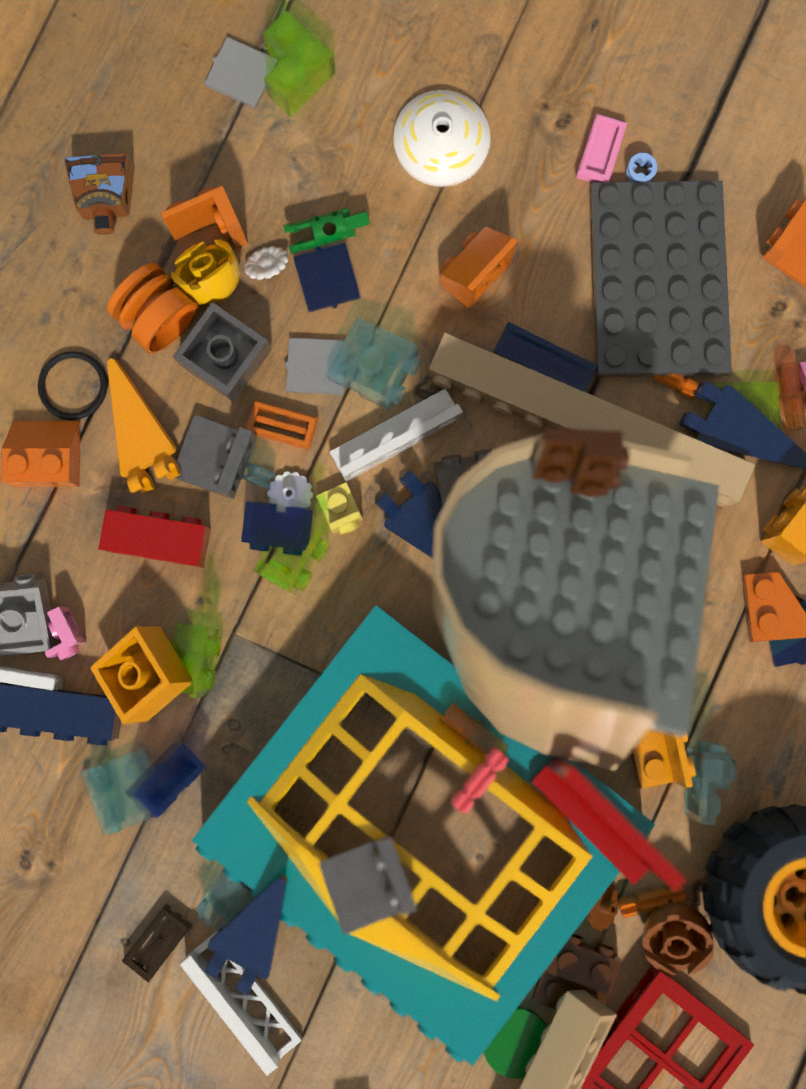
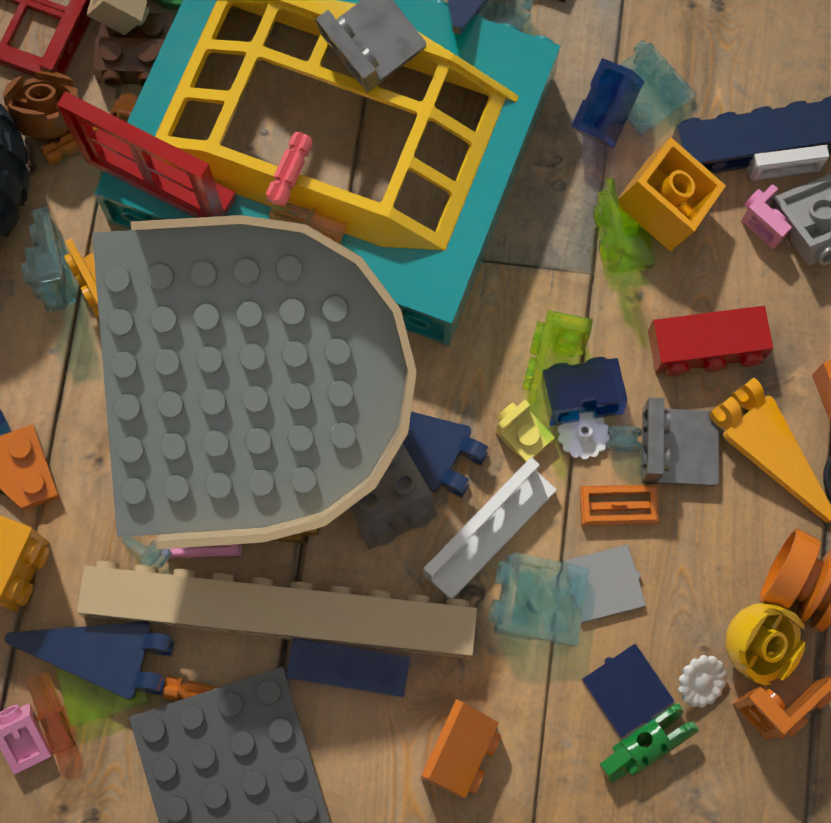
camera: 160 degrees right, 10 degrees down
(222, 352) = (713, 557): flat silver brick -> none
(583, 457) = (265, 497): reddish brown plate -> none

